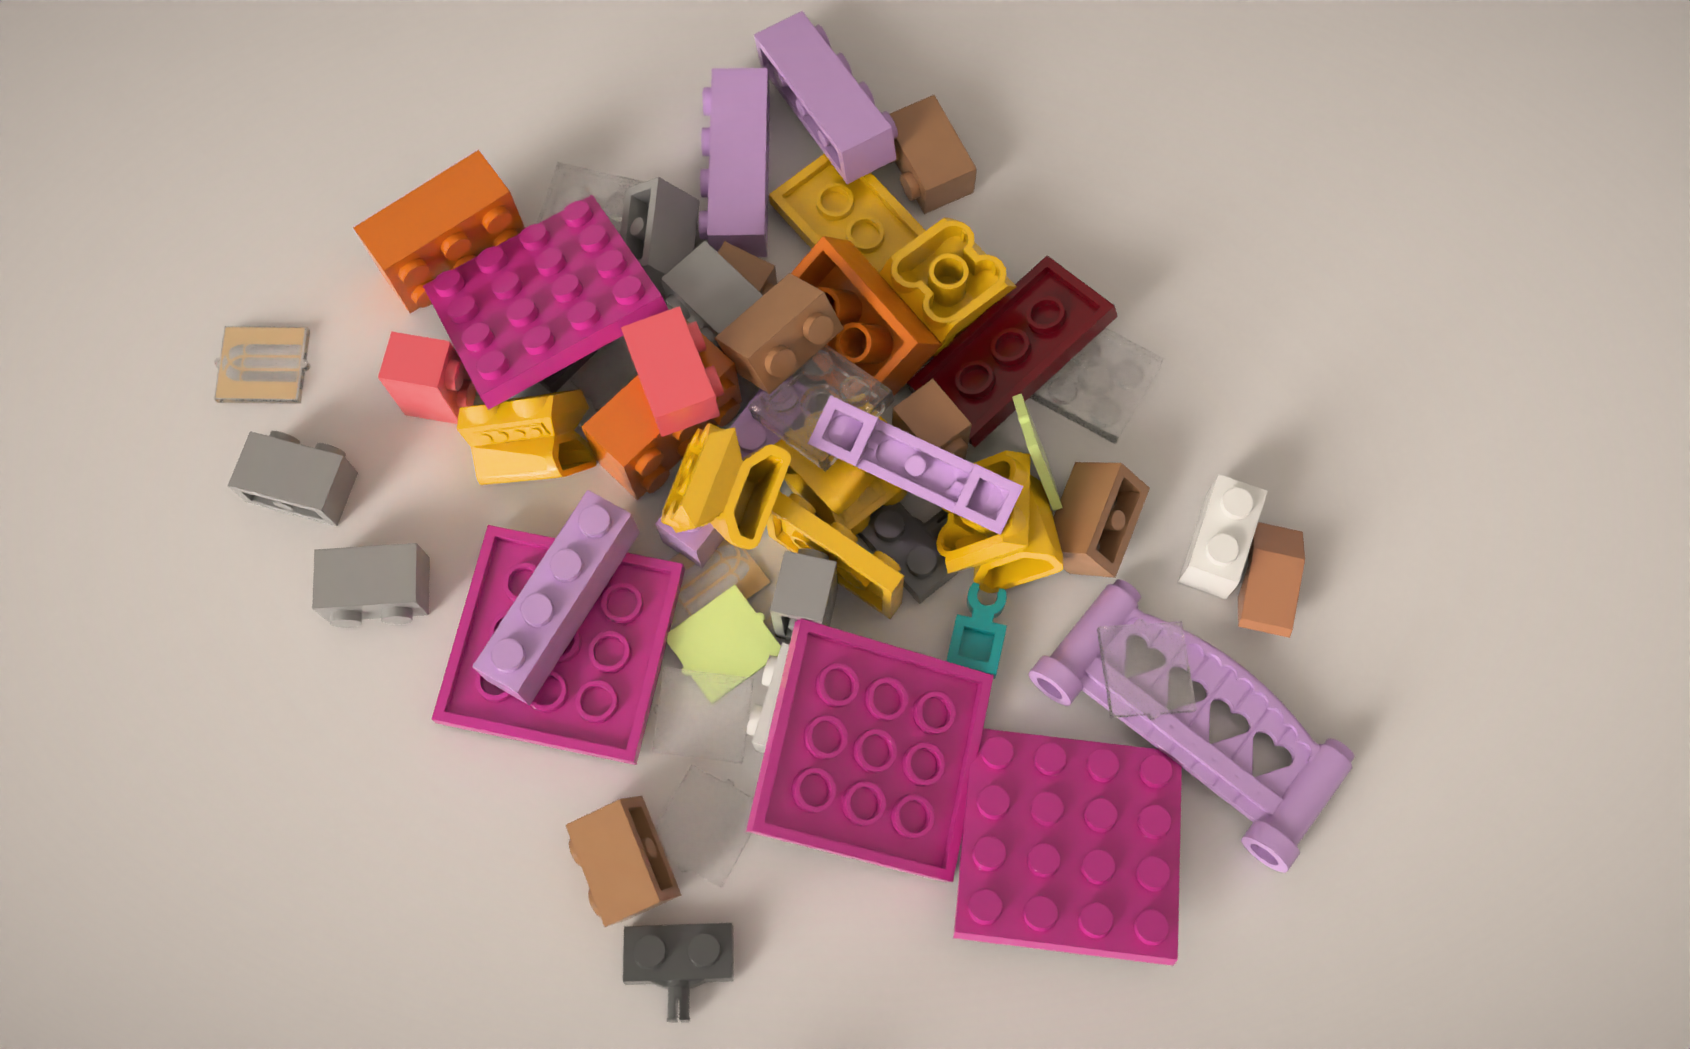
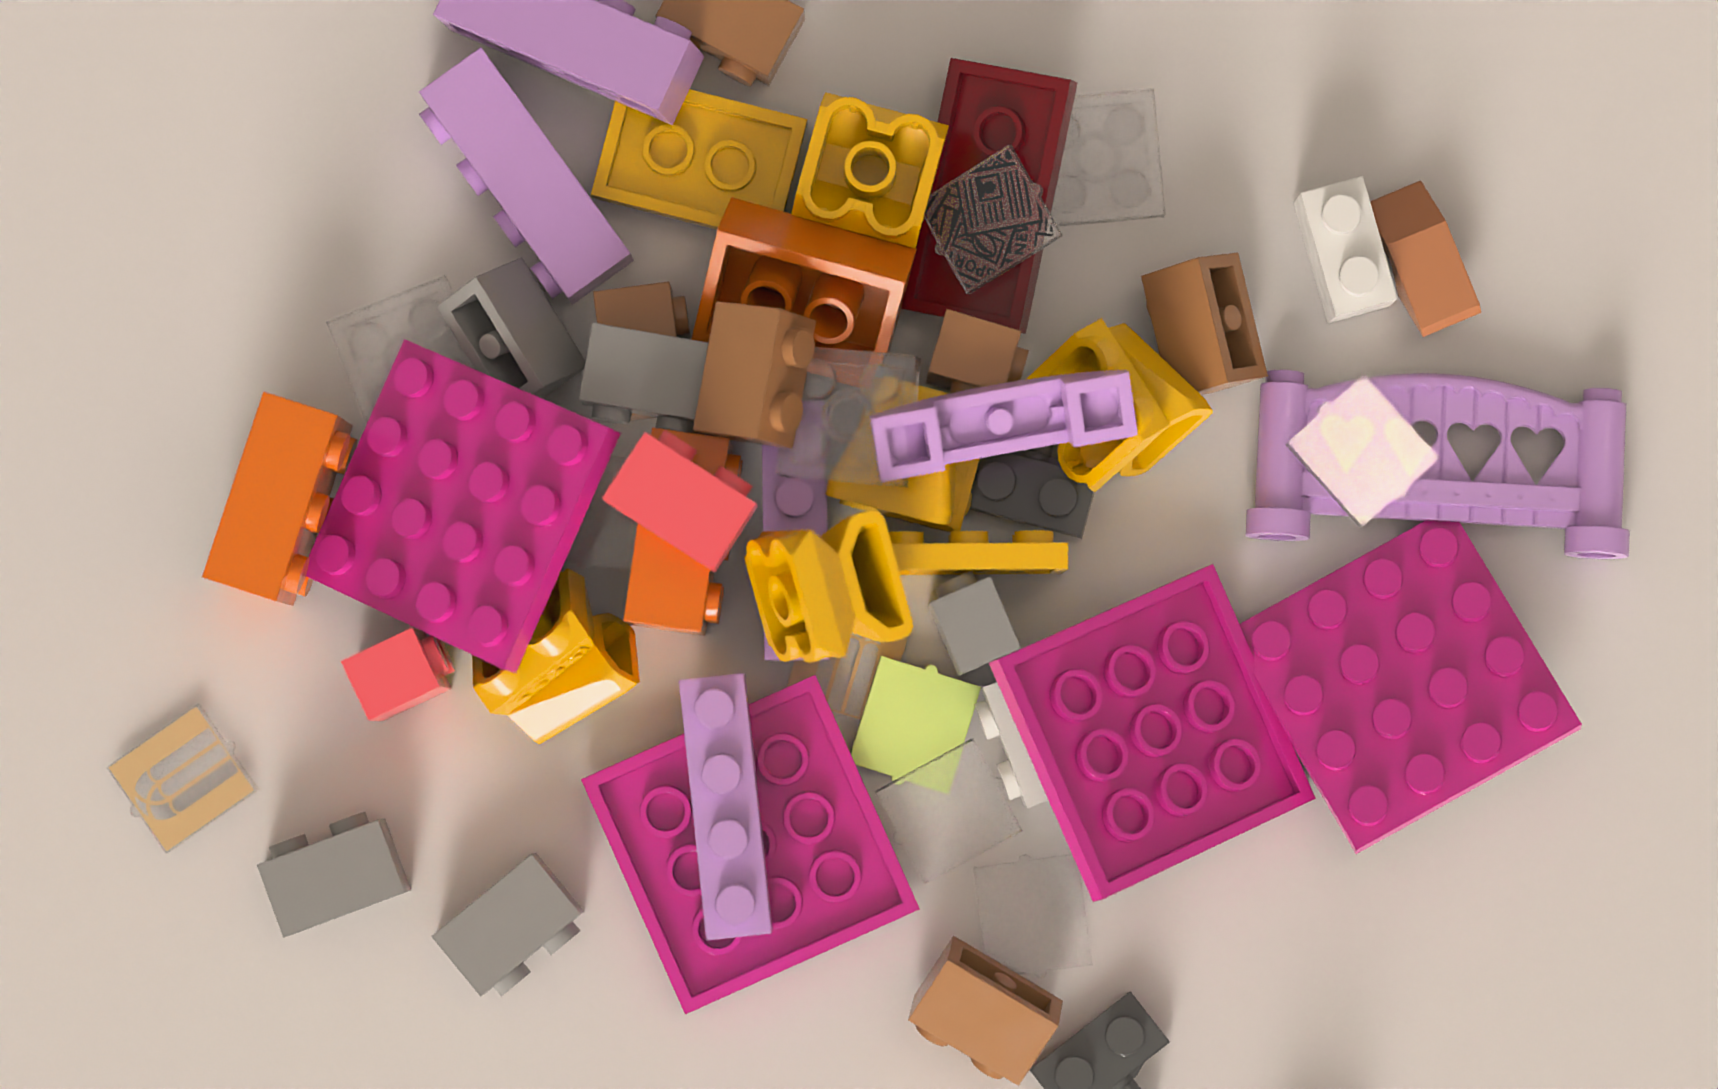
camera: 40 degrees left, 15 degrees up
(977, 639) = (1171, 537): teal plate -> none
(1001, 359) = (990, 219): none -> clear piece
(1037, 452) = (1099, 300): yellowish green piece -> none

